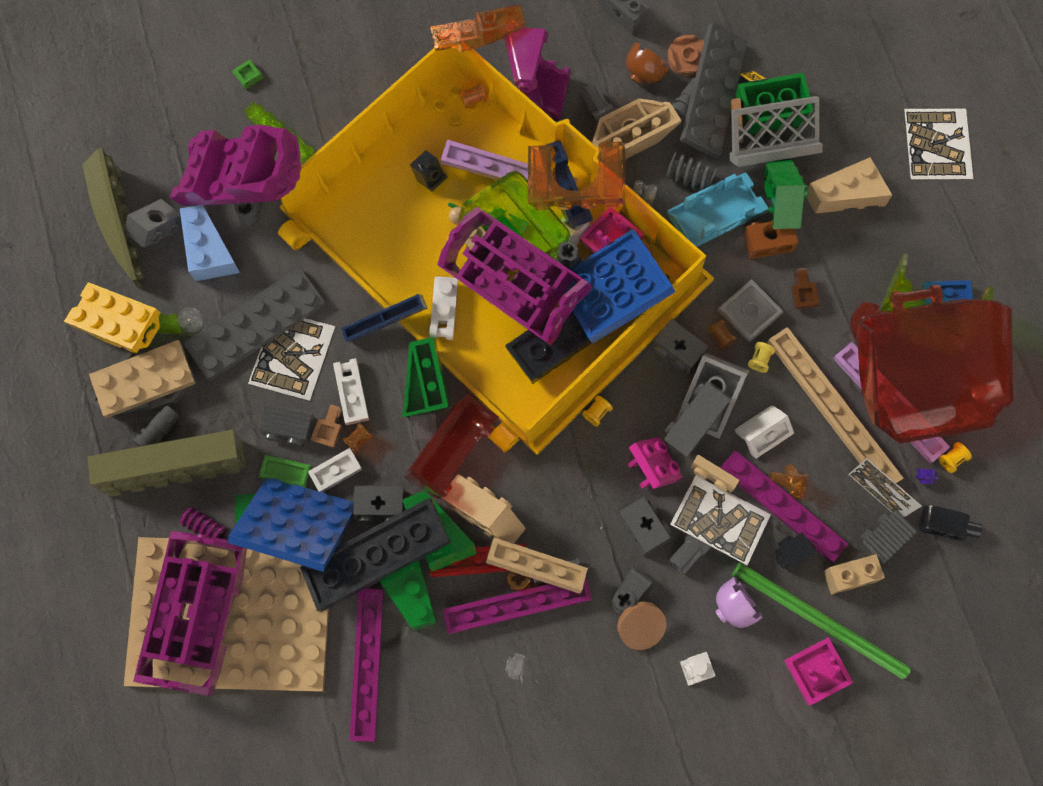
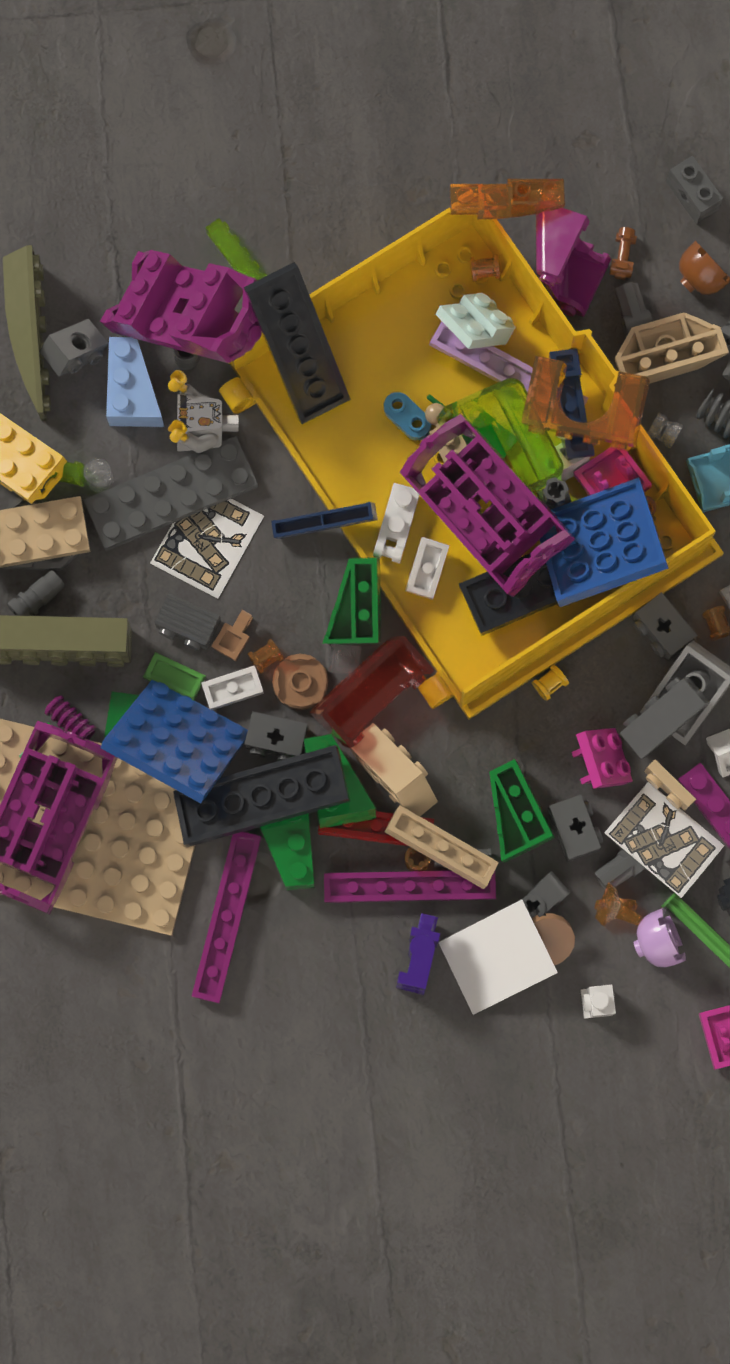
camera: 10 degrees right, 5 degrees up
(247, 74) = (217, 179): bright green tile -> none
(265, 258) = (198, 418): none -> light grey torso
(331, 176) = (297, 342): none -> black plate
(351, 392) = (268, 599): white plate -> none
(391, 454) = (300, 681): none -> medium nougat tile
(428, 171) = (412, 351): black brick -> none
(433, 222) = (406, 416): none -> dark azure plate
(475, 136) = (477, 321): none -> light aqua plate
(476, 339) = (427, 568): none -> white plate
(514, 666) = (392, 954): clear plate -> none
(539, 661) = (421, 953): none -> dark purple hips
(580, 76) = (621, 267): none -> dark orange bar
(594, 523) = (518, 814): none -> green wedge
(604, 649) = (497, 957): none -> white sticker
(691, 585) = (613, 907): none -> clear orange piece

